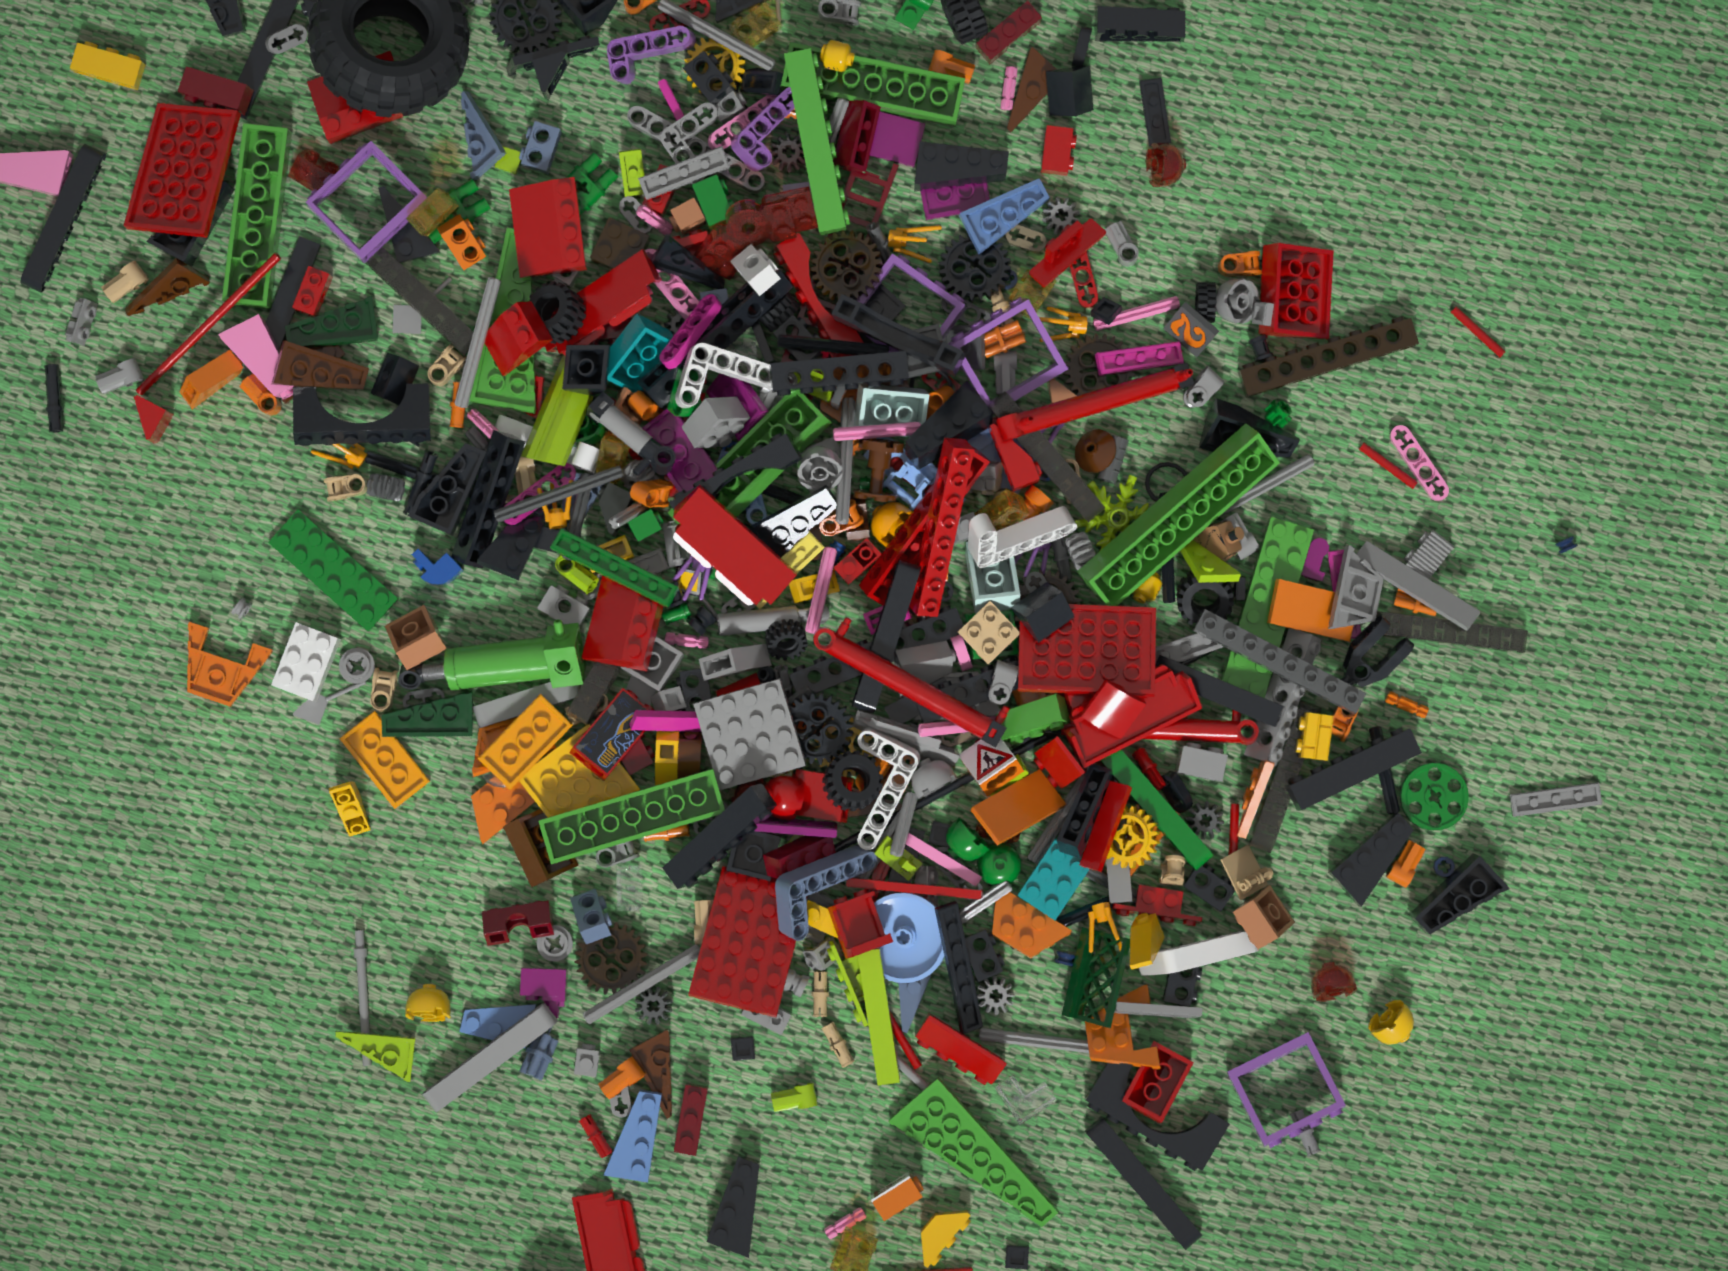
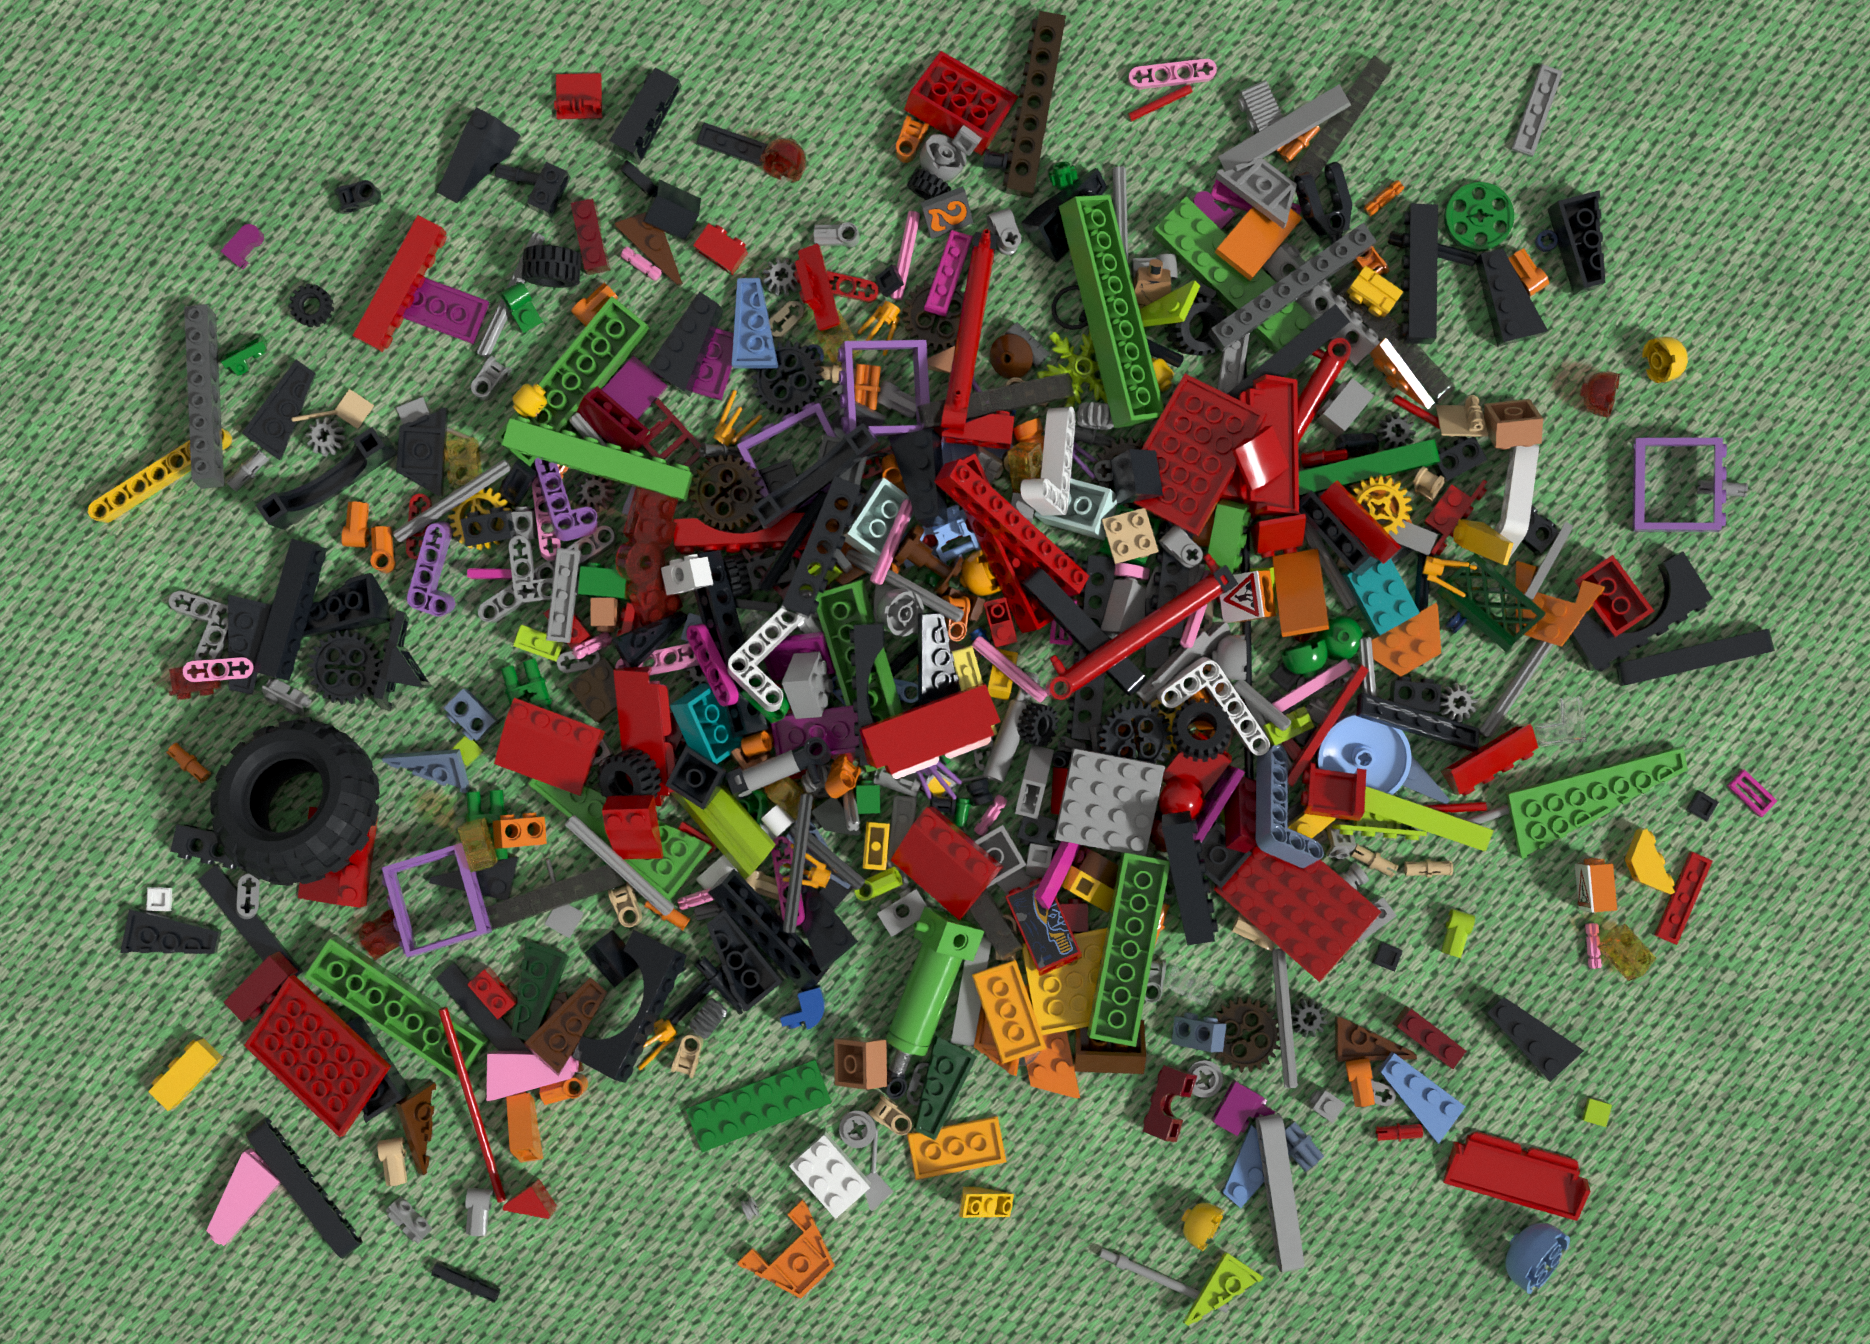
camera: 60 degrees left, 0 degrees up
(614, 568) = (893, 847): green tile -> none

